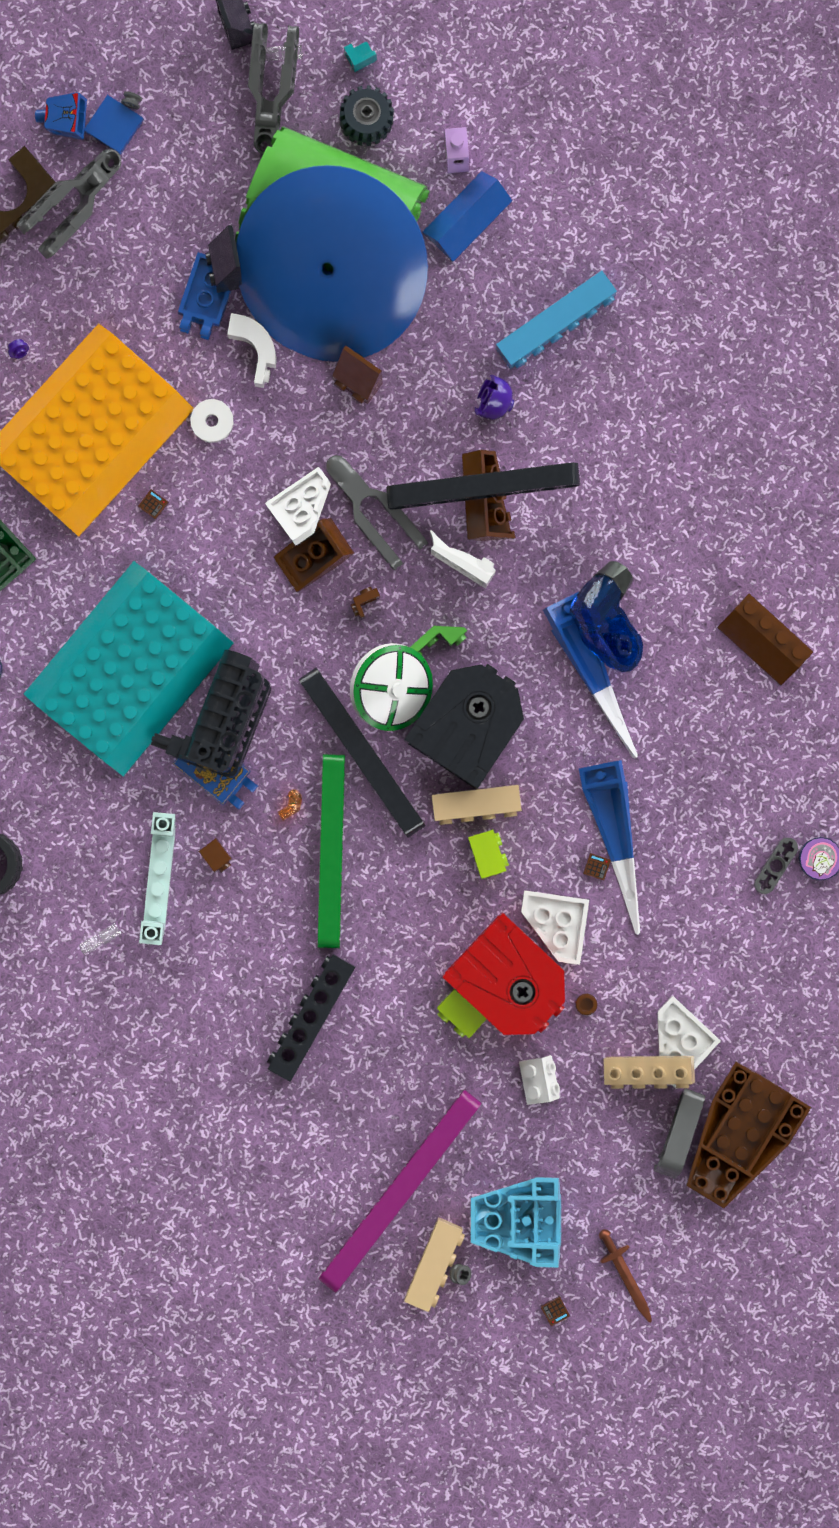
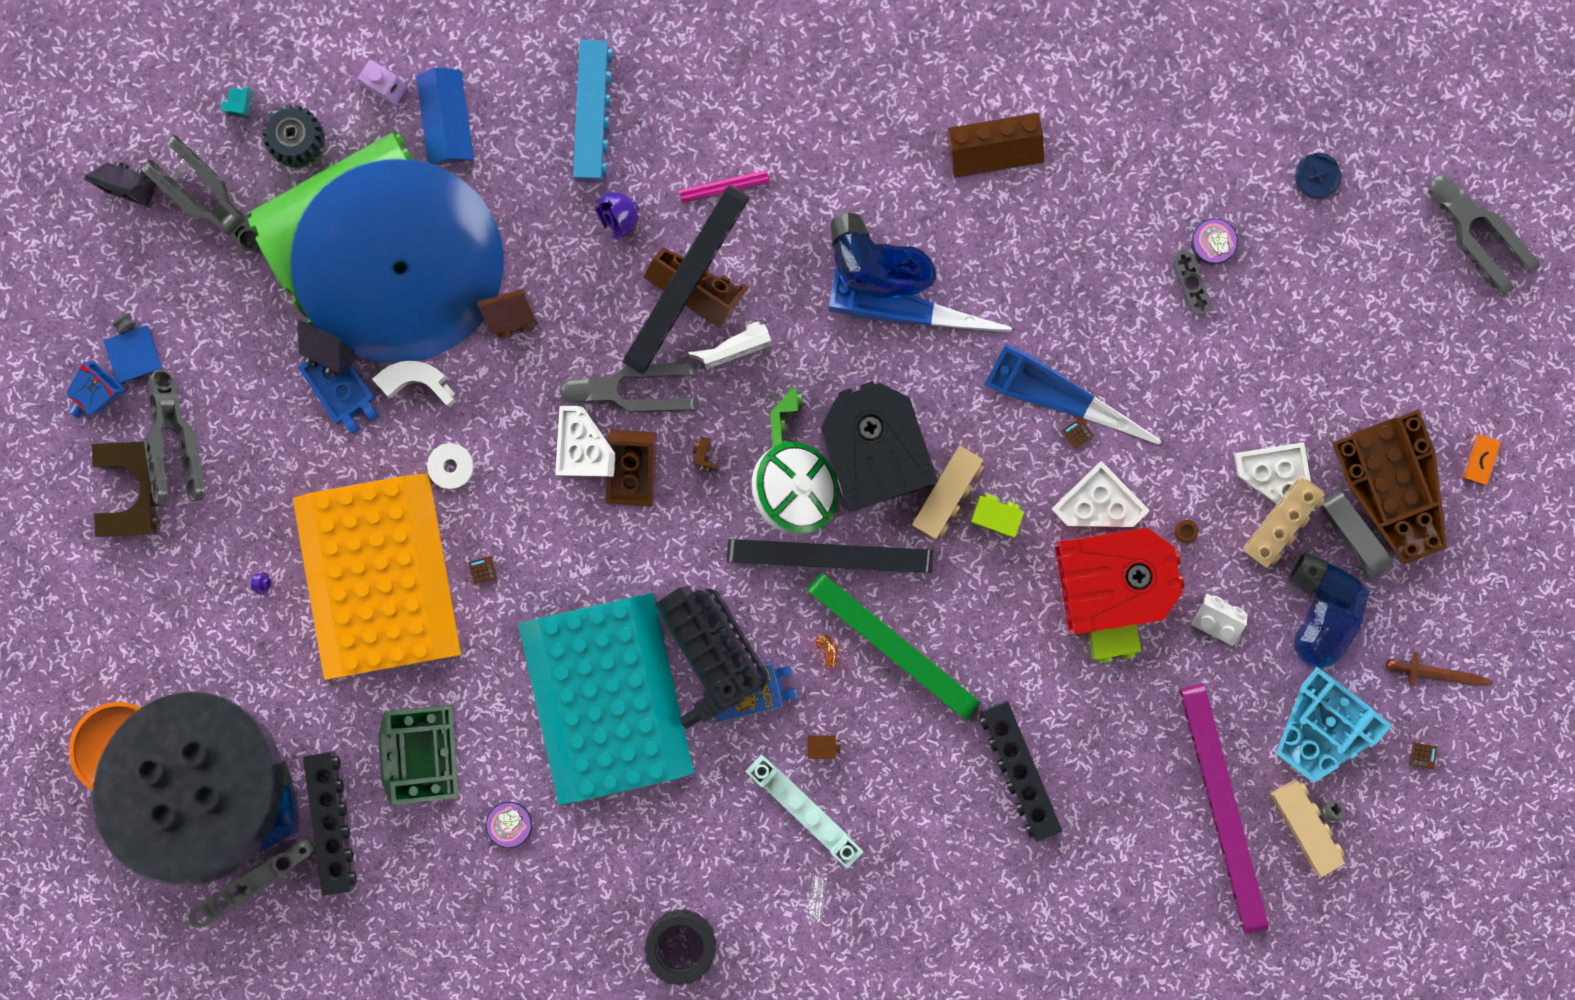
camera: 50 degrees left, 0 degrees up
(570, 456) = (719, 187): none -> dark pink axle
(610, 1161) = (1333, 615): none -> clear blue piece
(812, 1185) = (1482, 460): none -> orange tile

